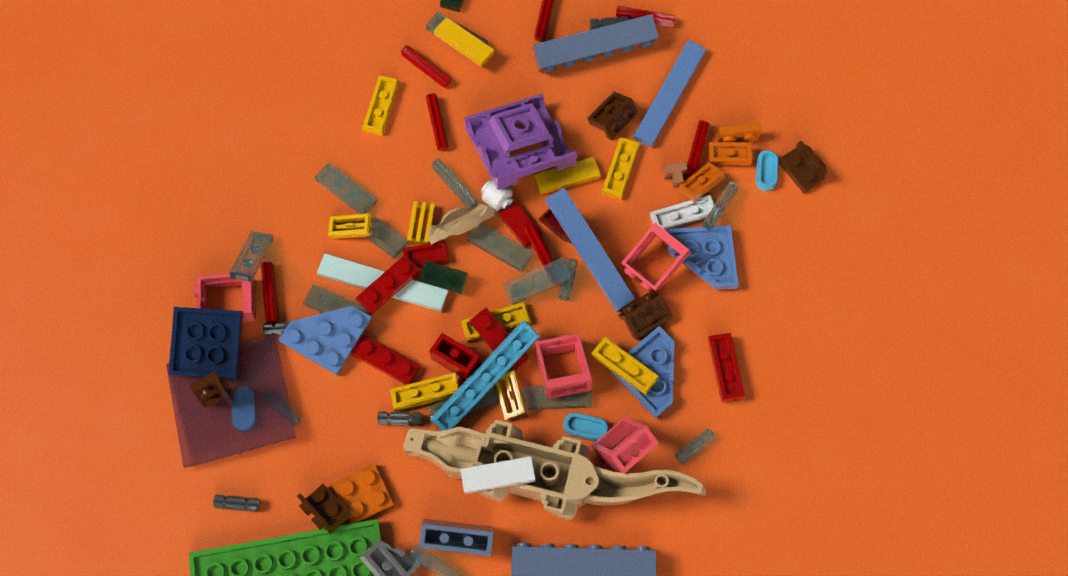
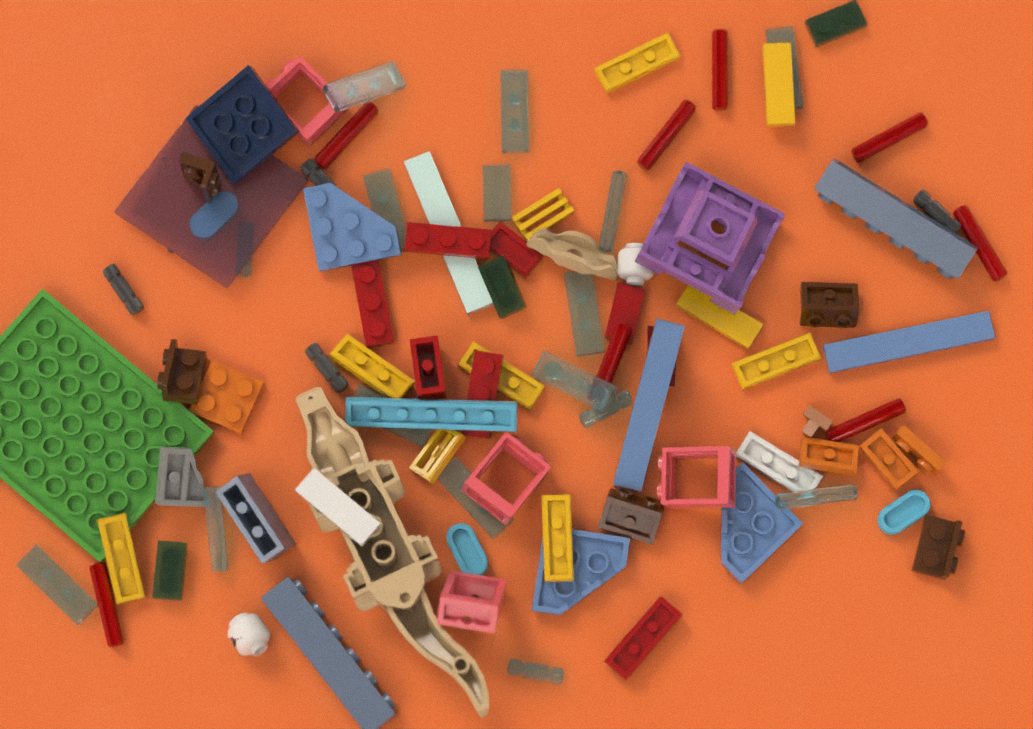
camera: 50 degrees right, 10 degrees up
(362, 229) = (491, 165): yellow tile -> none

